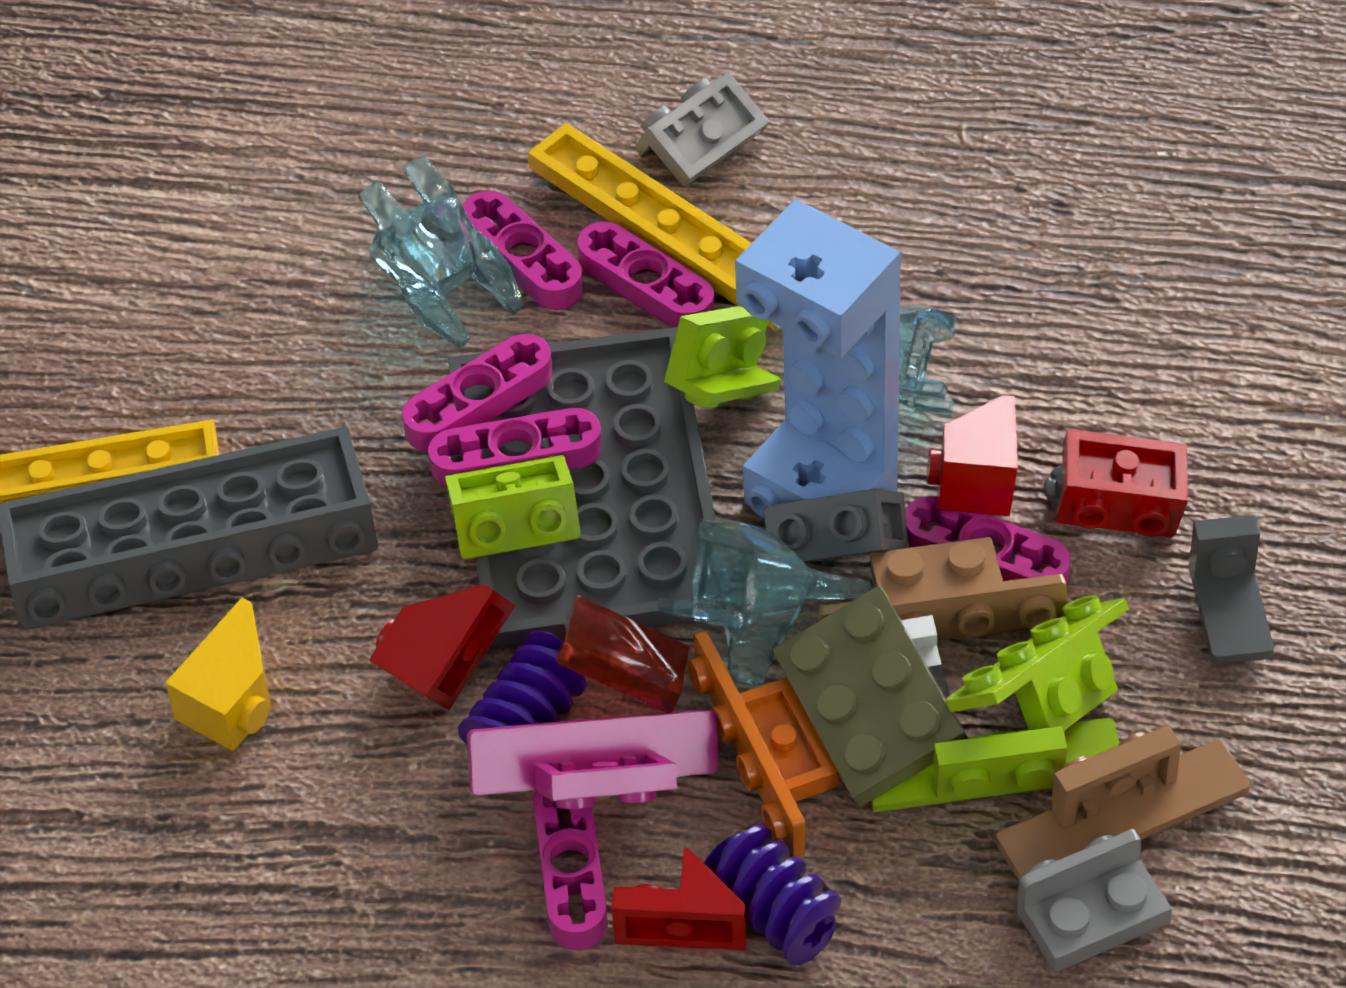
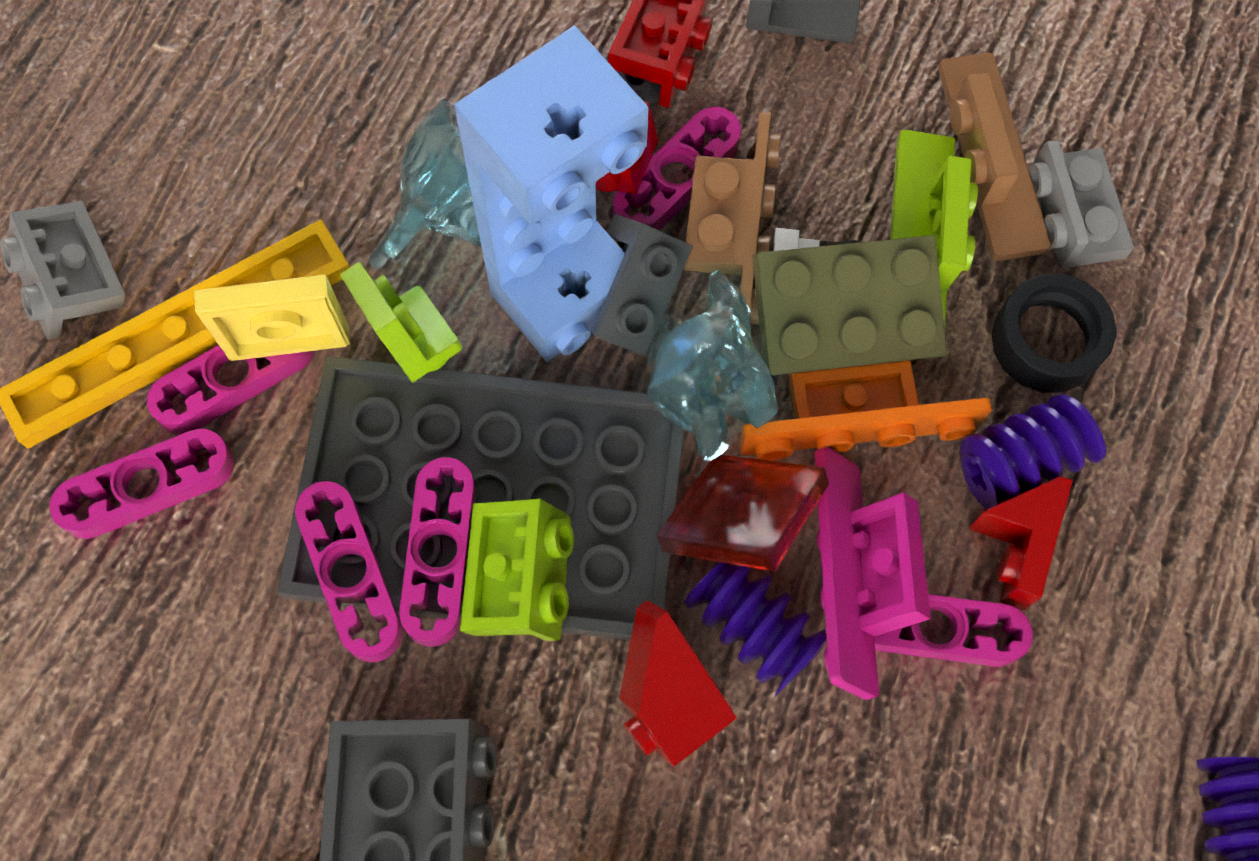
camera: 80 degrees left, 20 degrees up
(435, 250) = (122, 570): clear light blue piece -> none
(678, 252) = (273, 317): none -> light yellow plate
(917, 942) = (1078, 301): none -> black tyre
(1054, 673) = (858, 157): lime bracket -> none

